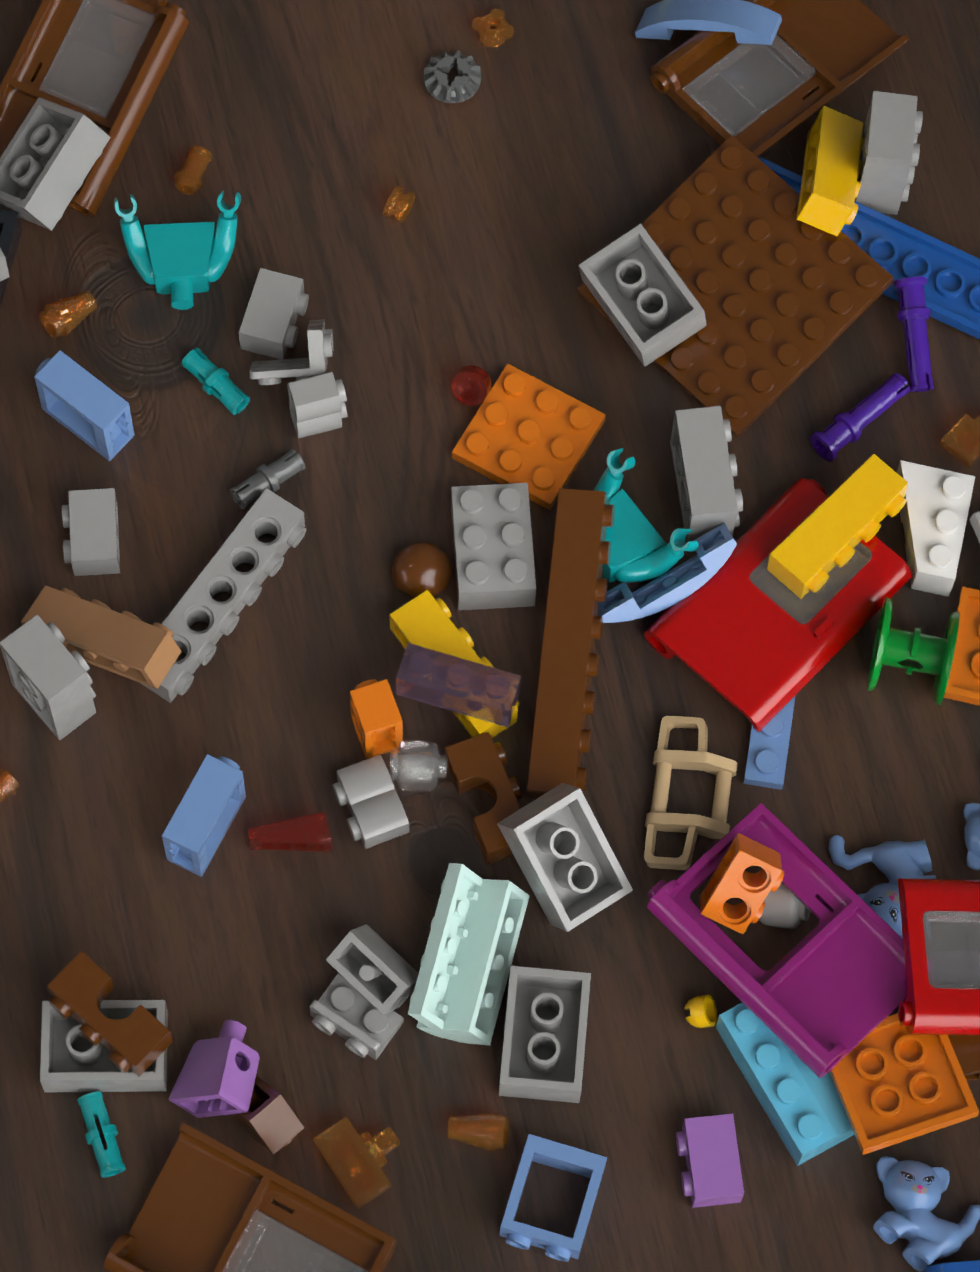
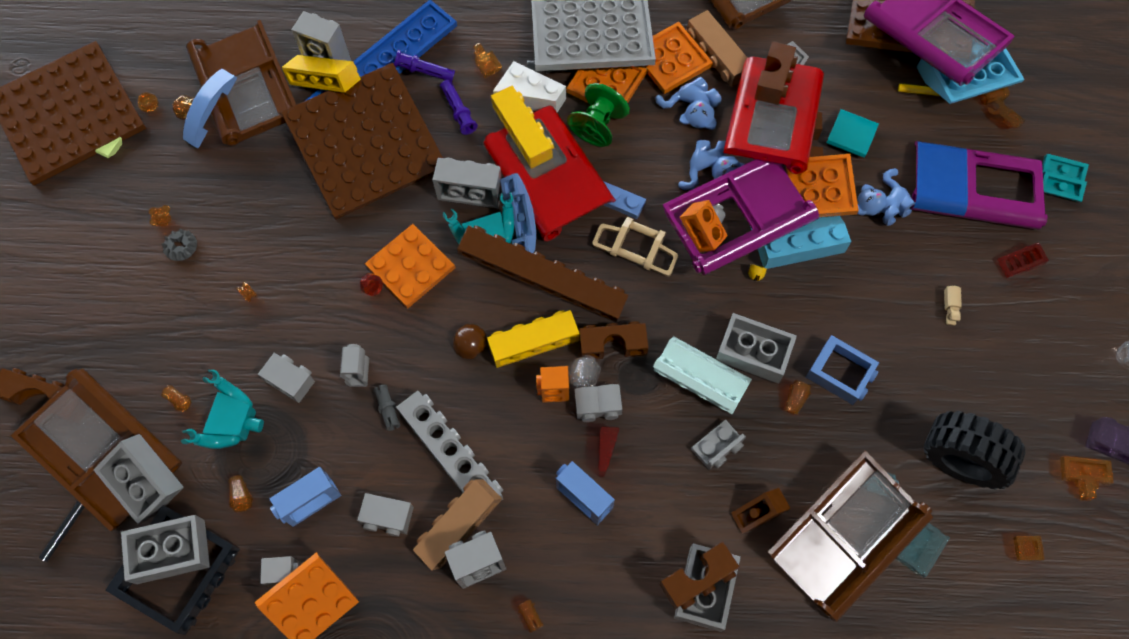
camera: 70 degrees left, 0 degrees up
(93, 1109) = (772, 603): teal pin -> none
(215, 381) = (315, 420): teal pin -> none
(218, 1075) = (739, 525): medium lavender torso -> none
(319, 346) = (329, 365): light grey bracket -> none
(357, 1159) = (800, 465): clear orange hinge -> none
(374, 969) = (698, 425): light grey brick -> none
(458, 685) = (552, 333): brick -> none
(493, 546) = (470, 298): light grey brick -> none
(565, 856) = (663, 308): light grey brick -> none
(642, 295) = (356, 179): light grey brick -> none
(711, 1160) = (838, 288): medium lavender brick -> none

